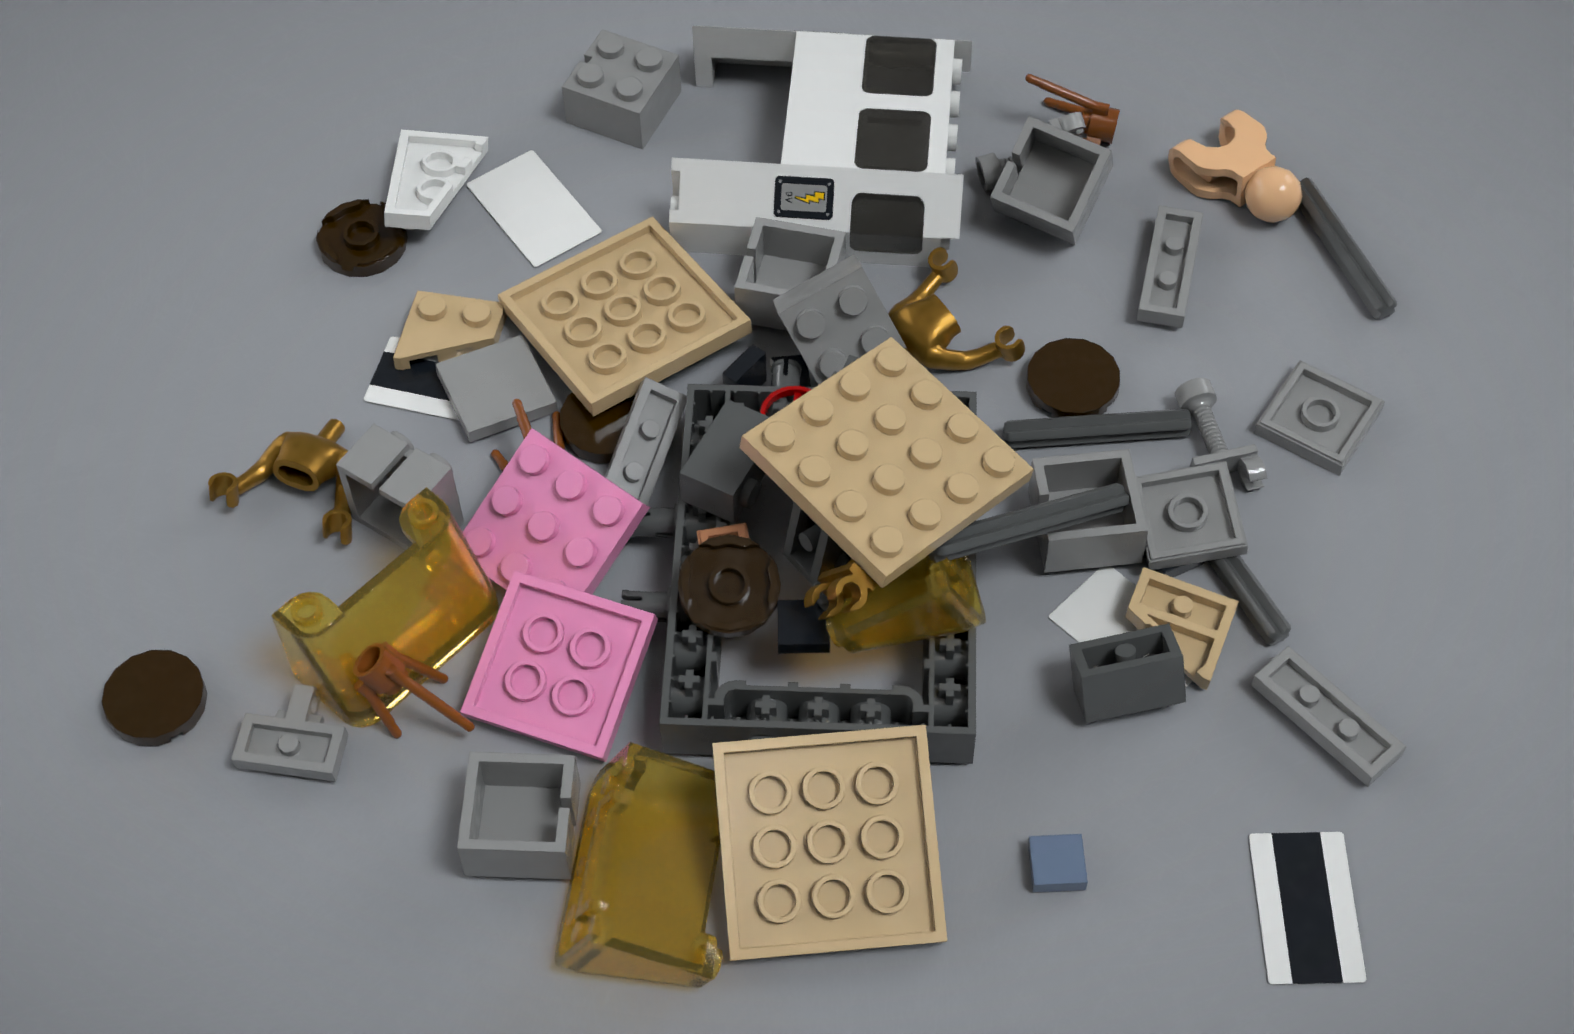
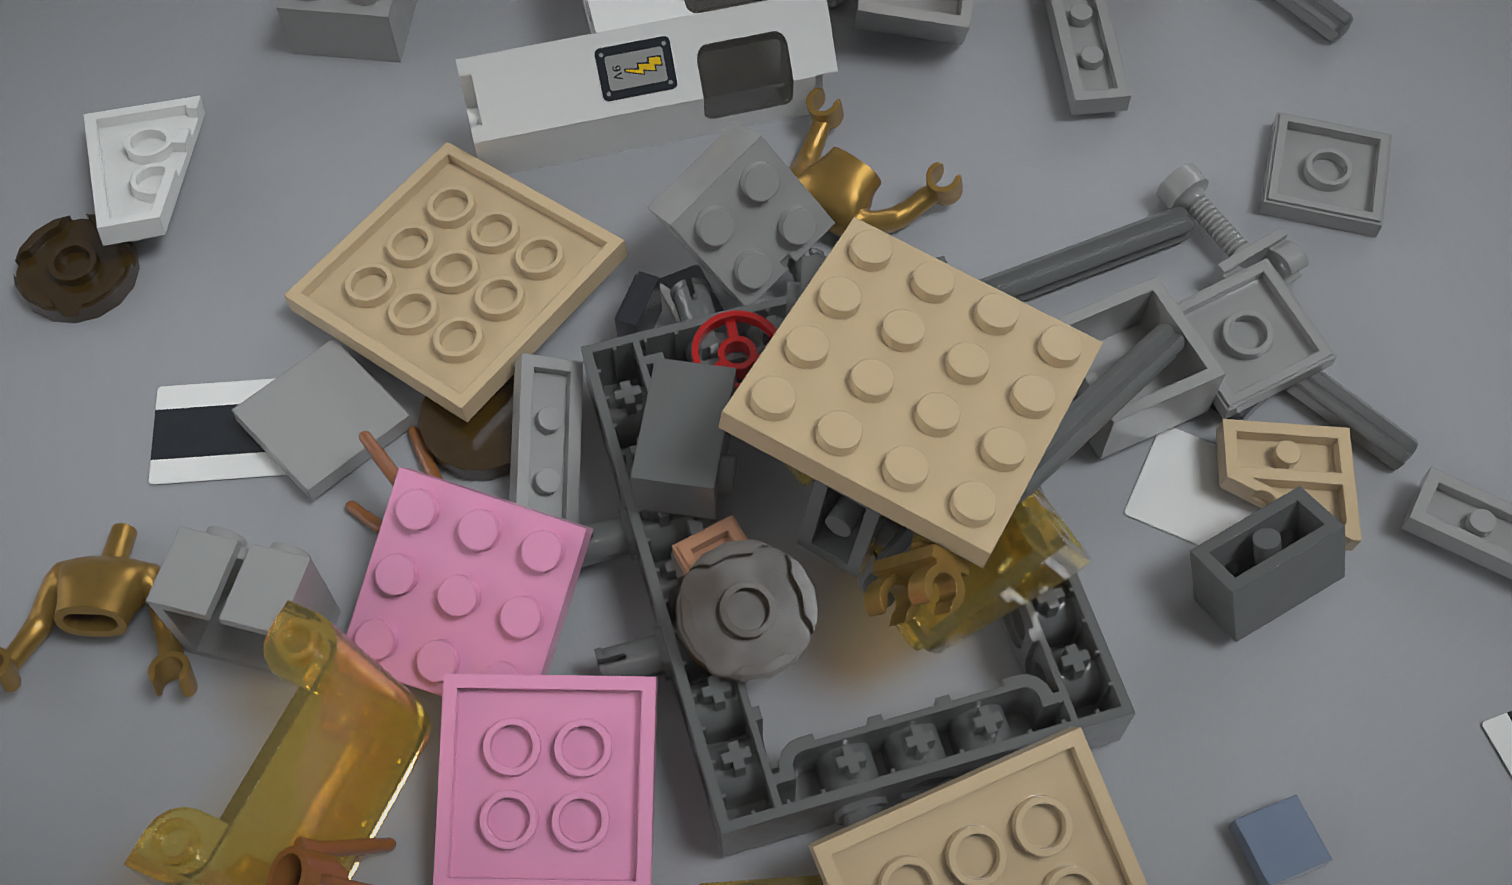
camera: 20 degrees left, 5 degrees up
(447, 327) = (230, 356): tan wing -> none
(534, 208) = (289, 171): white sticker -> none
(780, 259) = (636, 157): light grey piece -> none
(800, 629) = (859, 641): black tile -> none
(1073, 378) = (1030, 206): dark brown tile -> none

